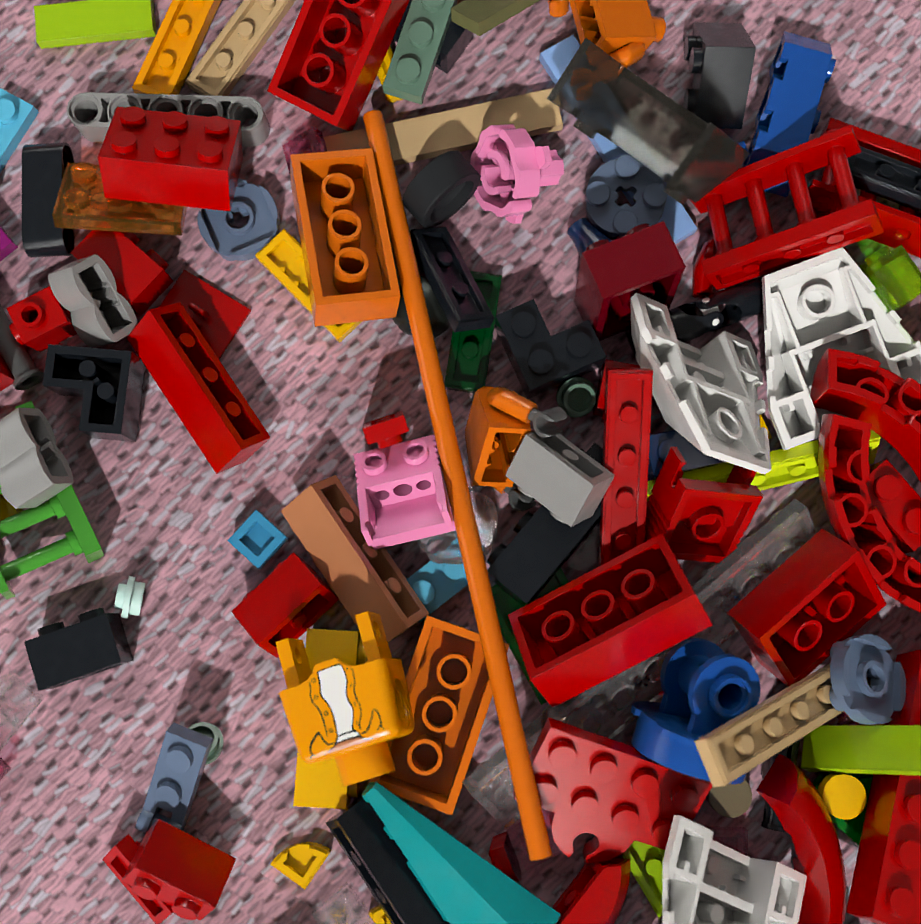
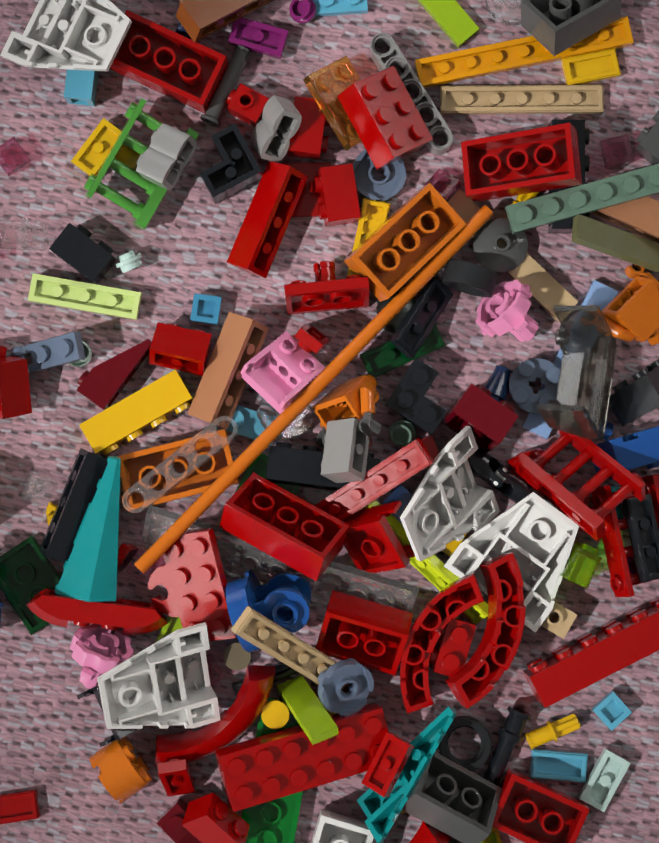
camera: 50 degrees right, 5 degrees up
(41, 180) = (320, 53): black beam -> none
(134, 686) = (85, 296): none -> yellowish green plate
(229, 283) = (337, 194): none -> red brick
(260, 723) = (109, 378): none -> dark red slope
(301, 861) = (51, 449): yellow tile -> none
(339, 372) = (326, 292): none -> red plate
(347, 708) = (147, 419): light orange piece -> none
(416, 147) = (495, 258): none -> dark grey dish
(434, 727) = (167, 469): none -> clear beam

